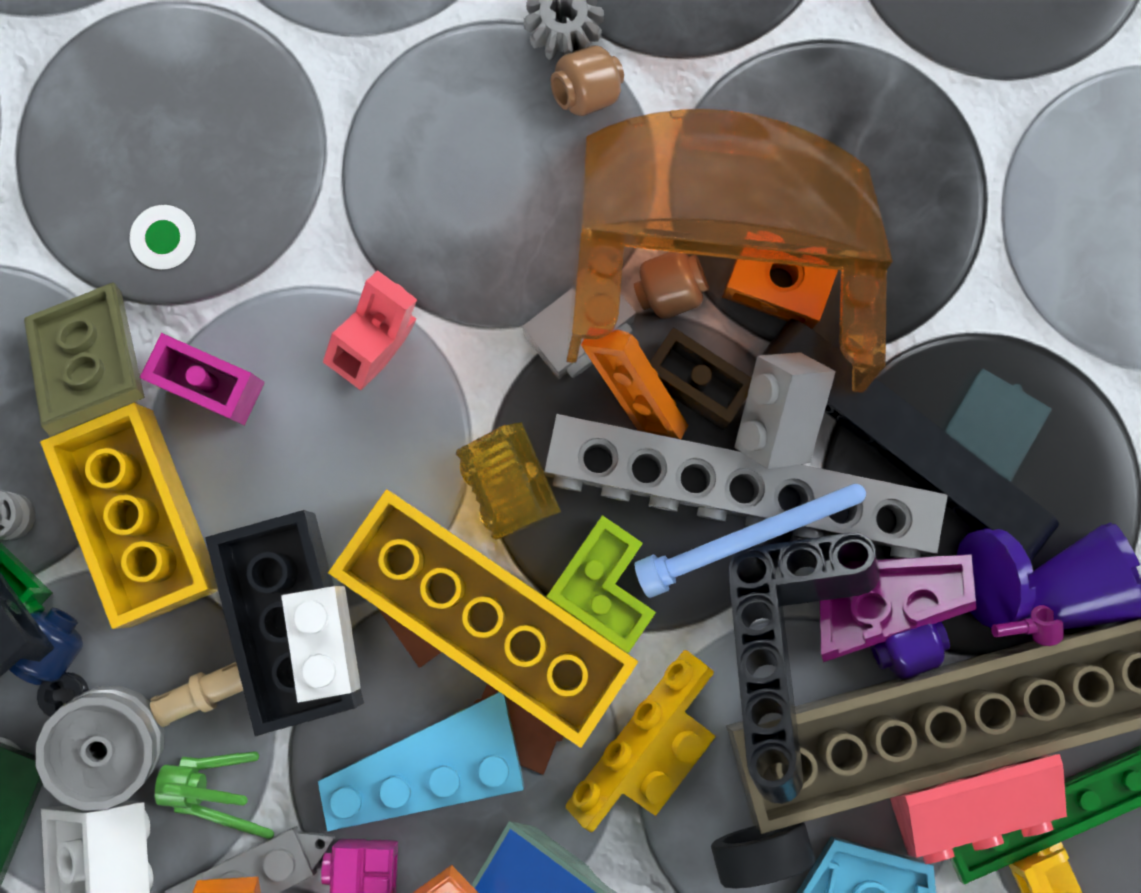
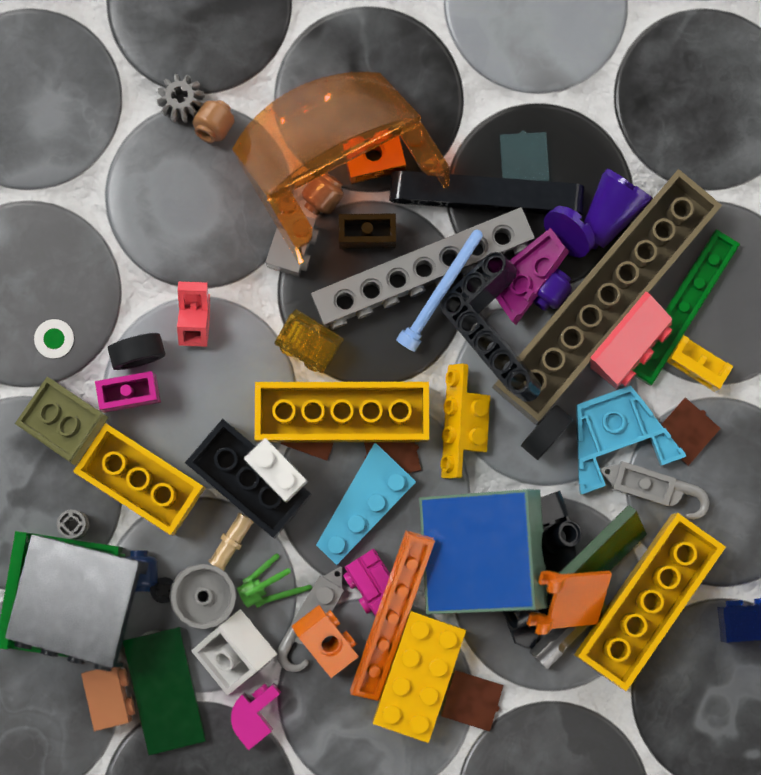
camera: 40 degrees left, 0 degrees up
(253, 329) = (136, 351): none -> black tyre
(590, 588) = (380, 359): lime plate -> none
(635, 384) = (340, 253): orange plate -> none
(784, 409) = (417, 218): light grey brick -> none
(1041, 625) = (604, 238): magenta hand -> none

